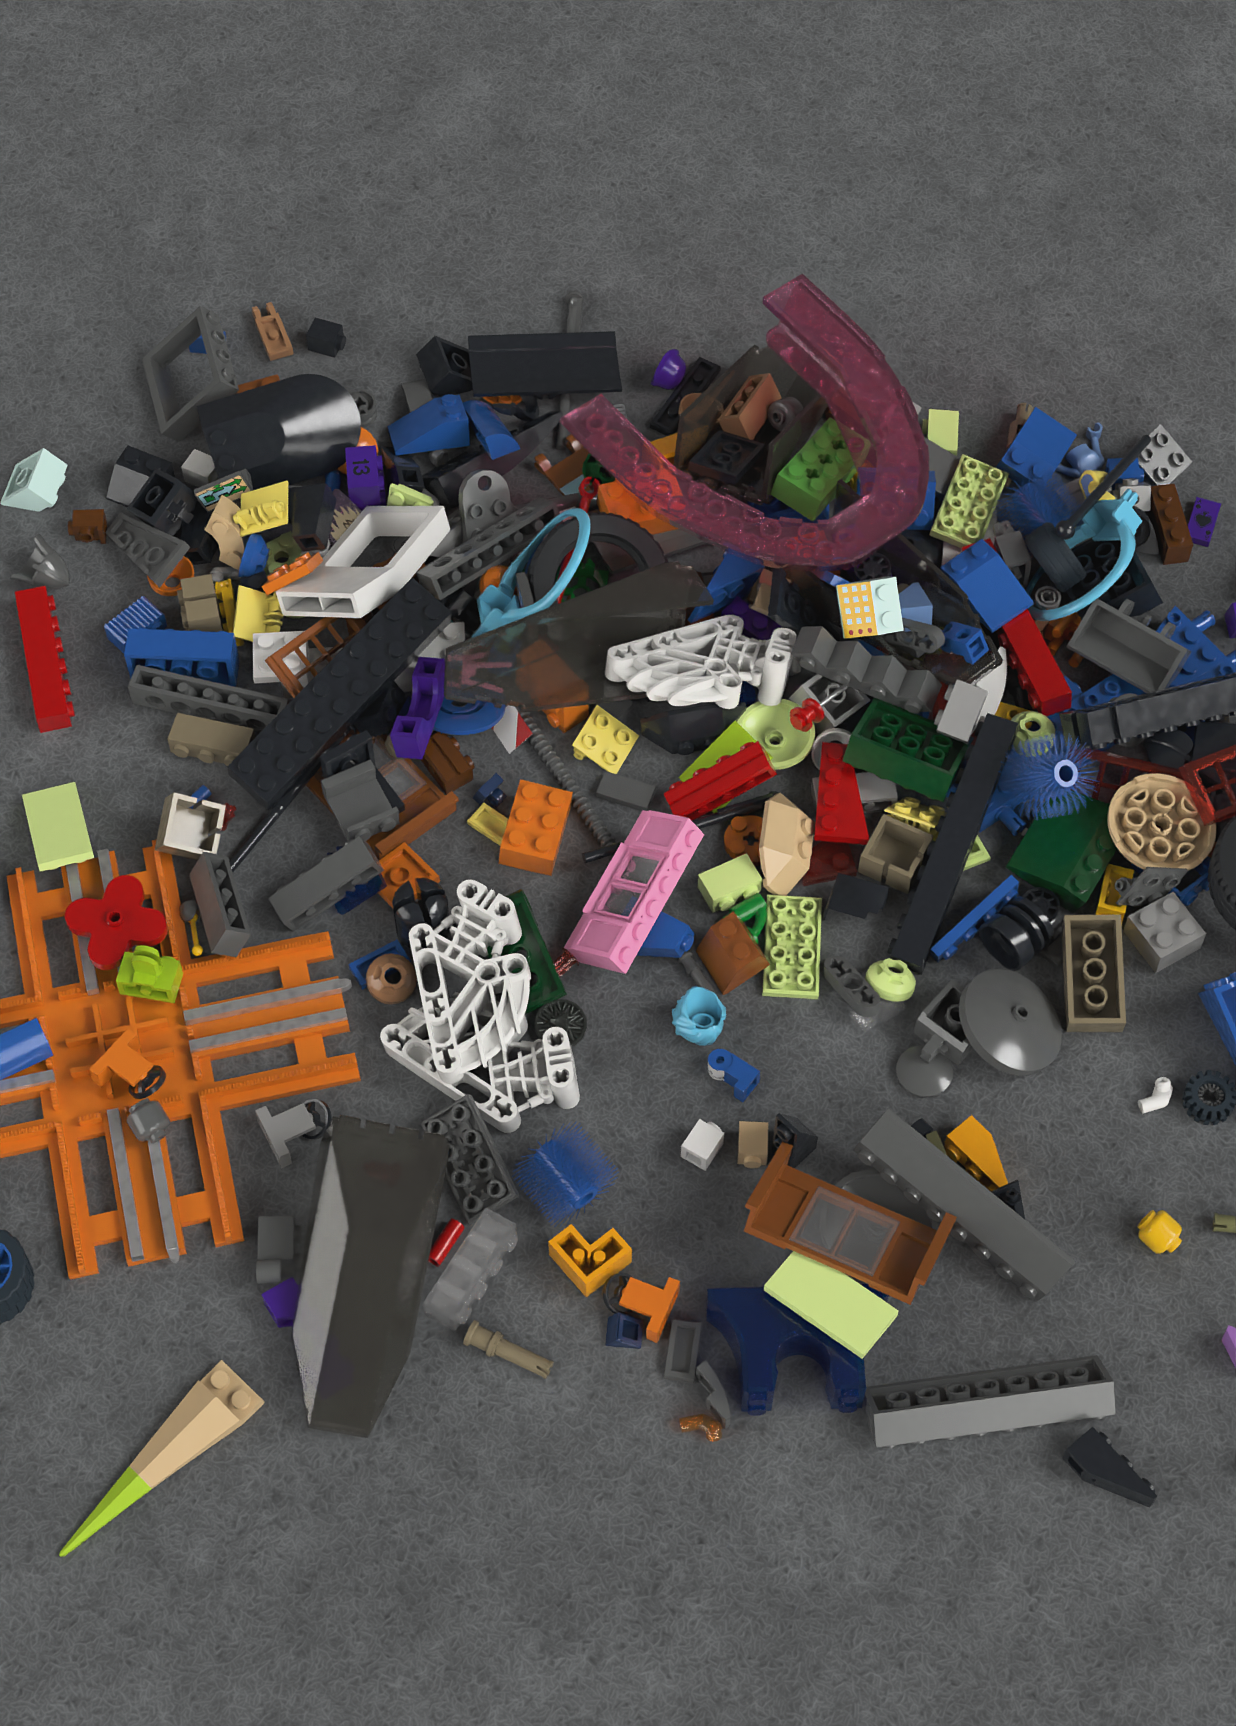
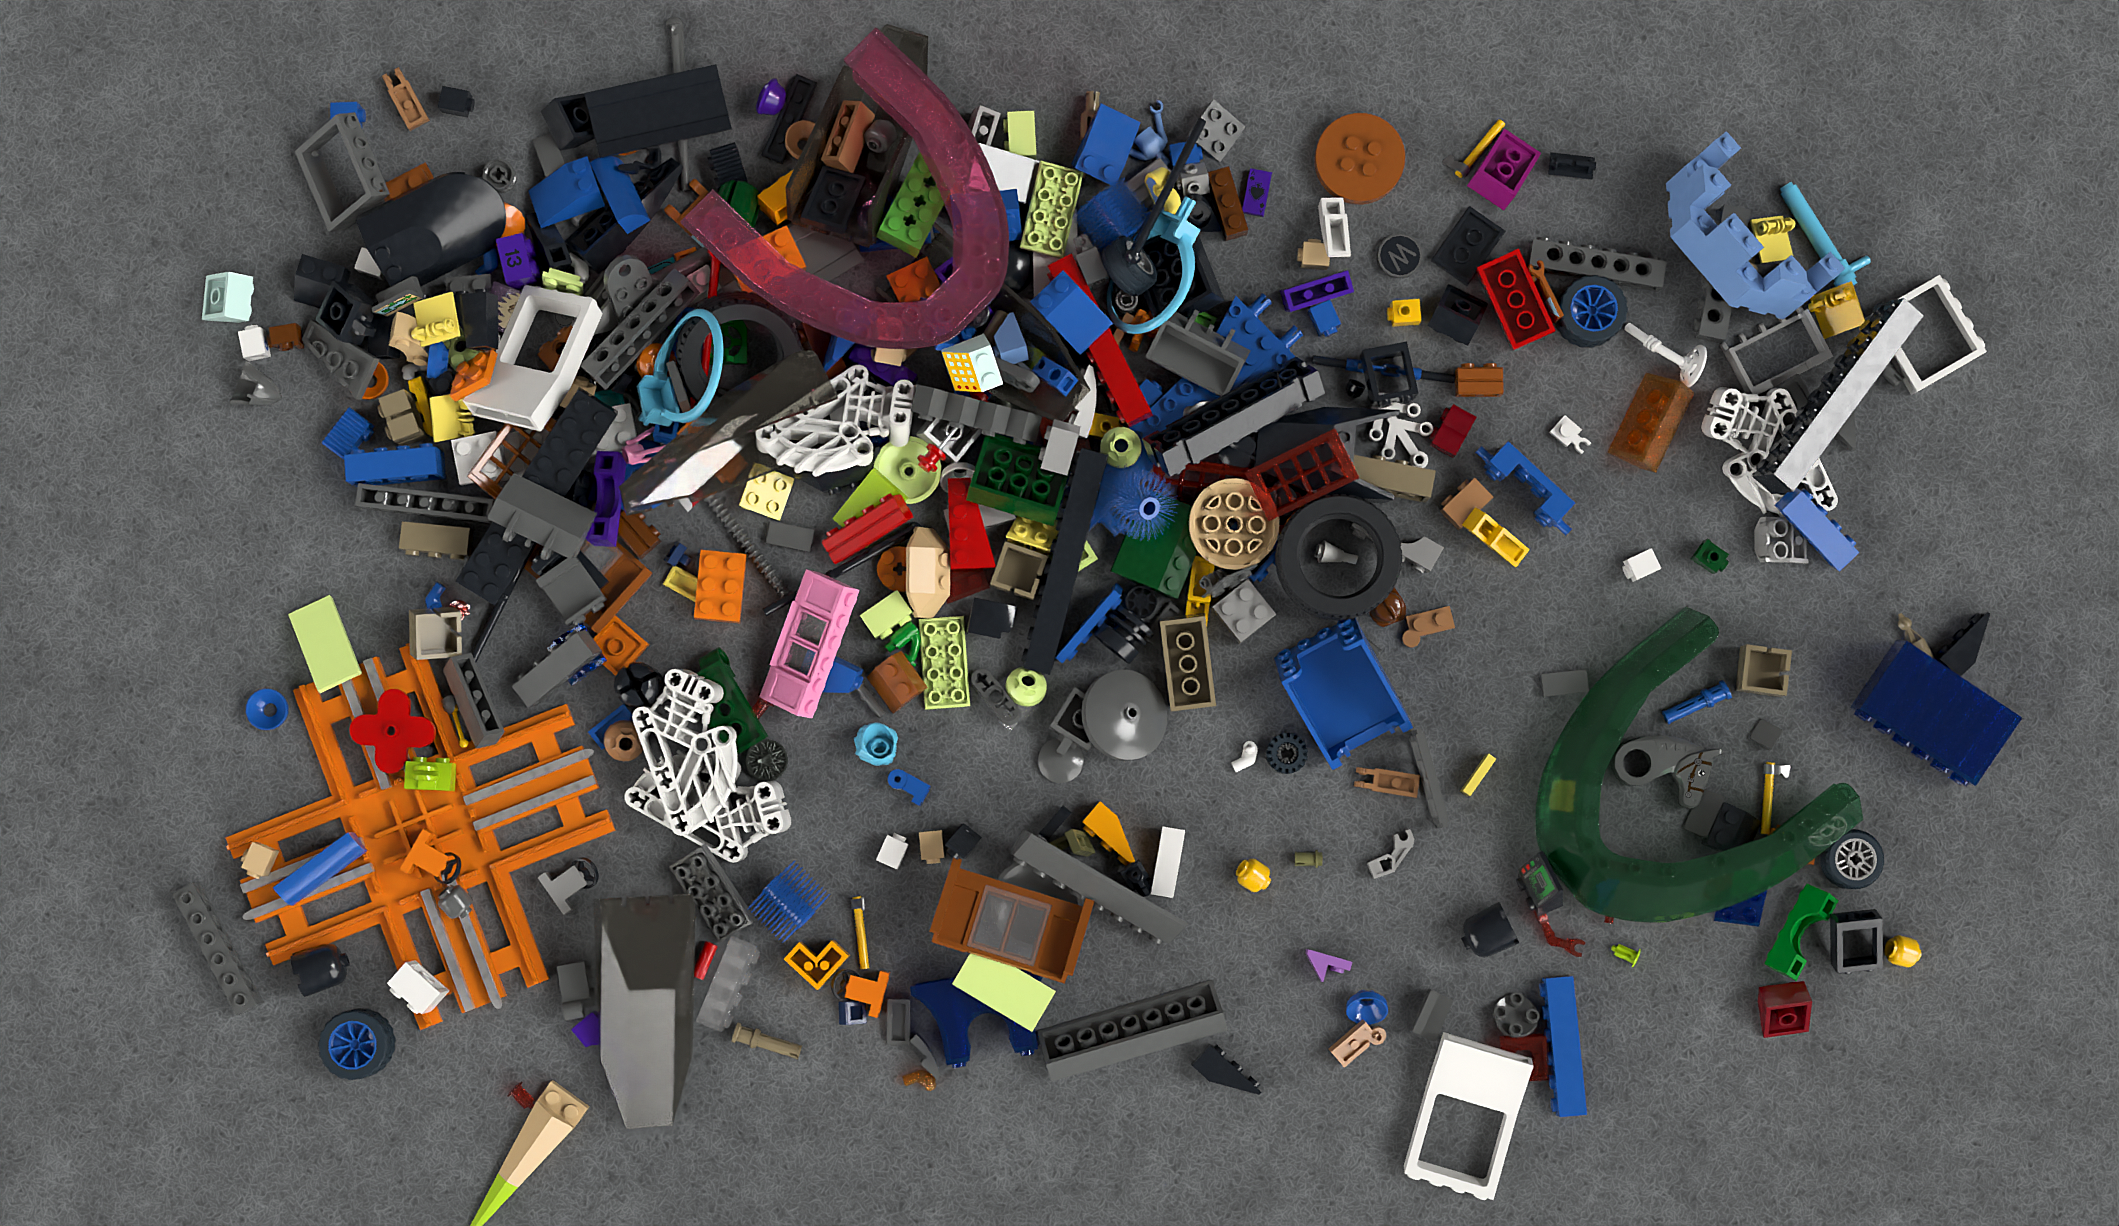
camera: 10 degrees left, 25 degrees up
(43, 659) = (276, 478): red brick -> none
(53, 527) = (254, 343): none -> white brick
(79, 1208) = (417, 987): none -> white brick
(179, 1373) = (521, 1096): none -> clear red piece
(343, 702) = (541, 517): none -> dark grey piece
(649, 1205) = (858, 906): none -> yellow piece
(790, 609) = (916, 364): black wing -> none
(1052, 1195) = (1167, 862): none -> white slope

